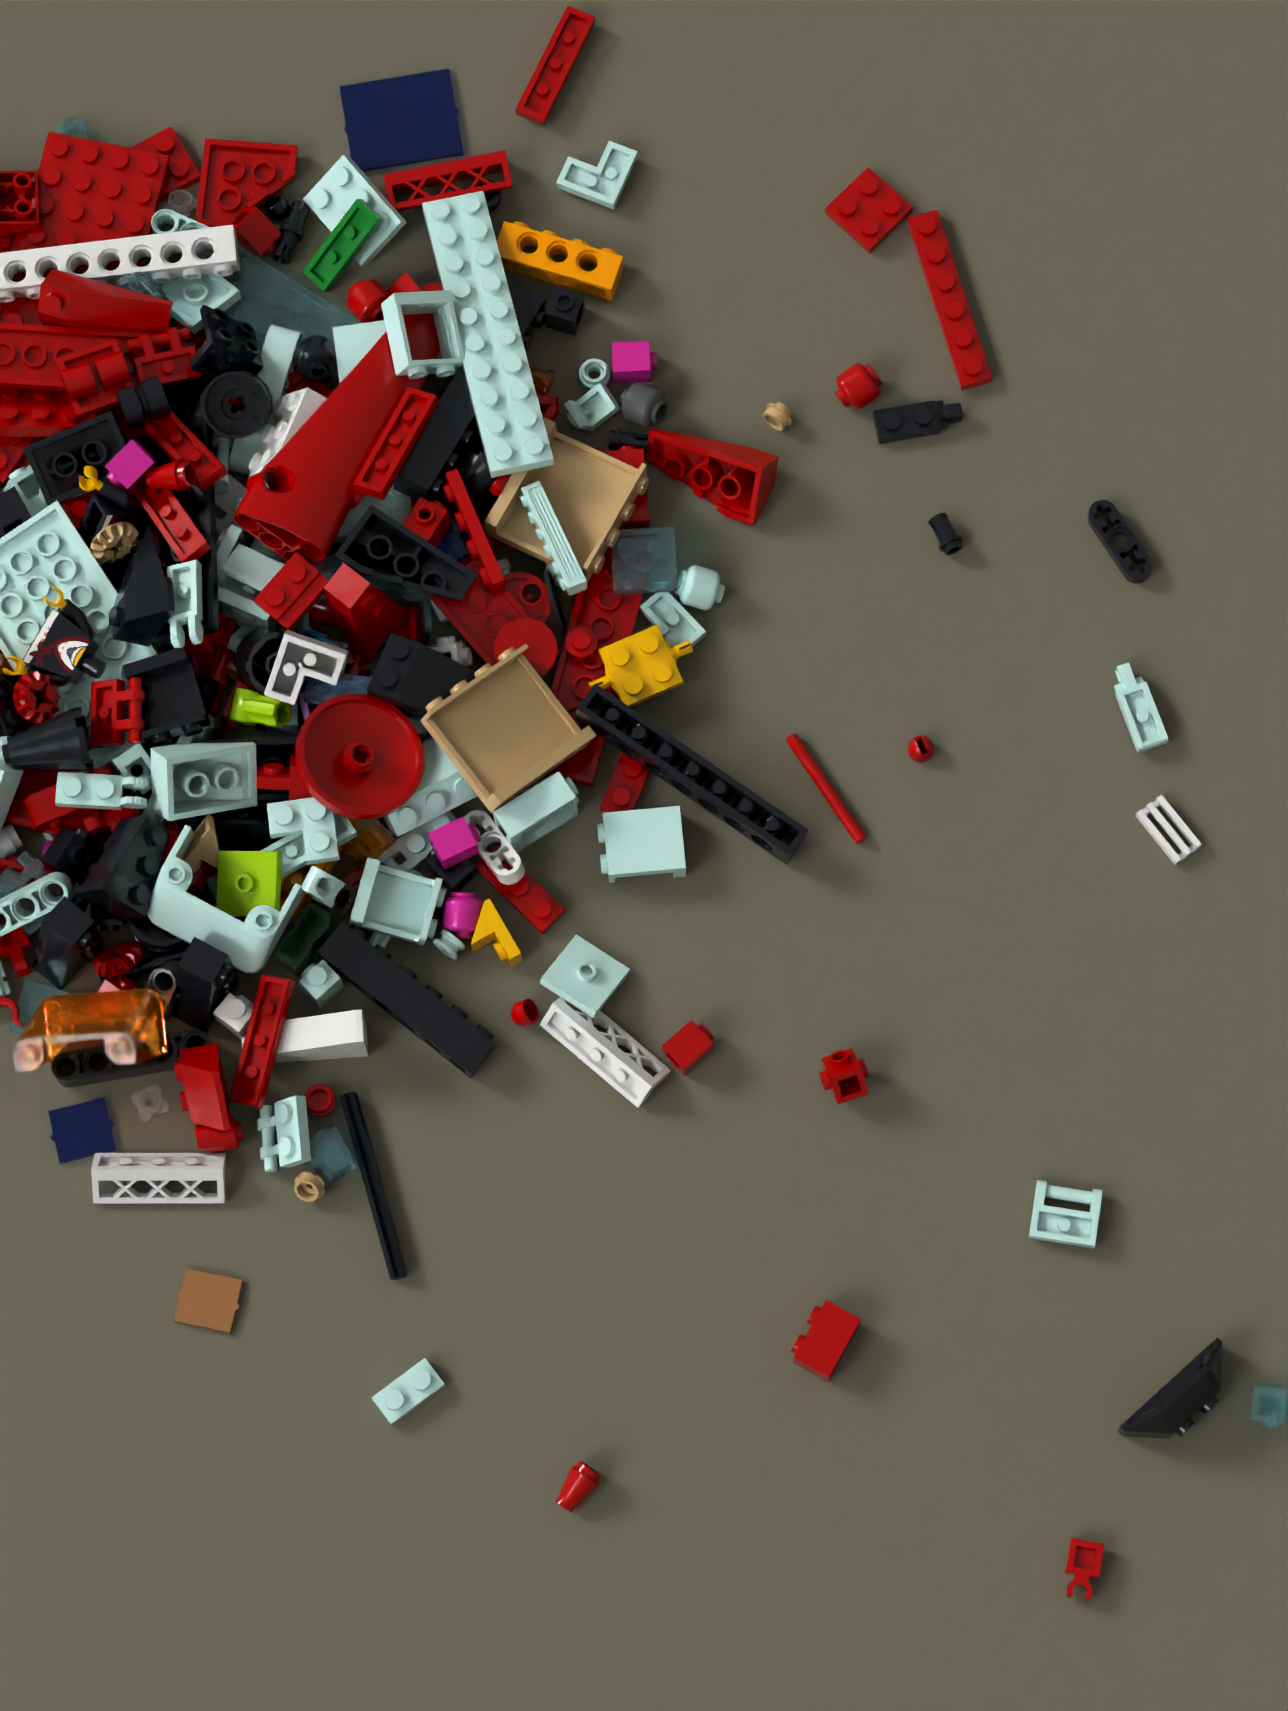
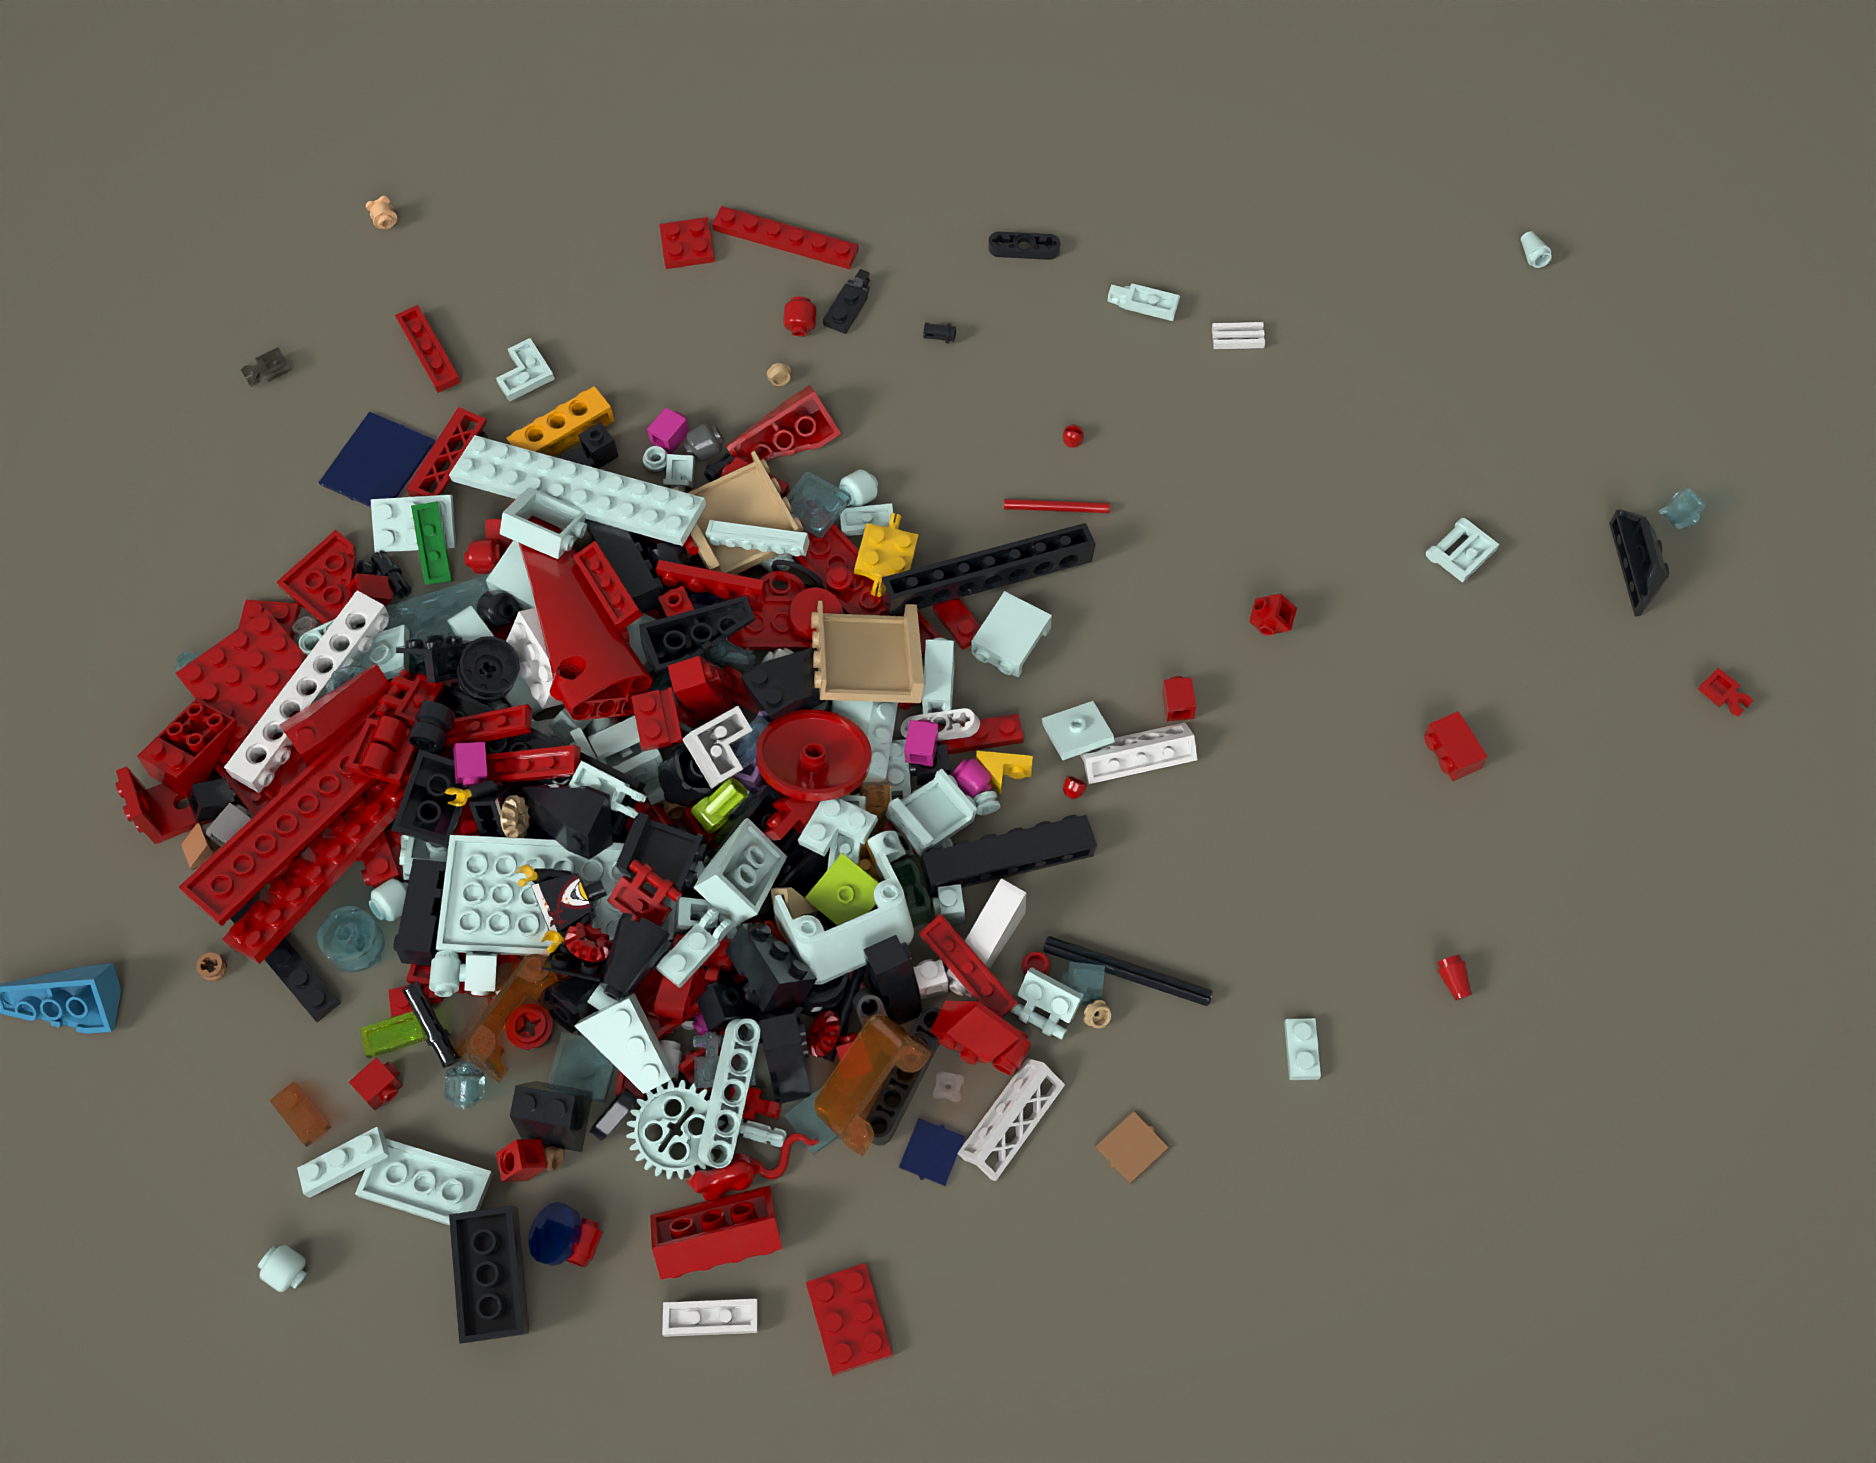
camera: 55 degrees left, 10 degrees down
(172, 476) = (504, 739): red cone -> none

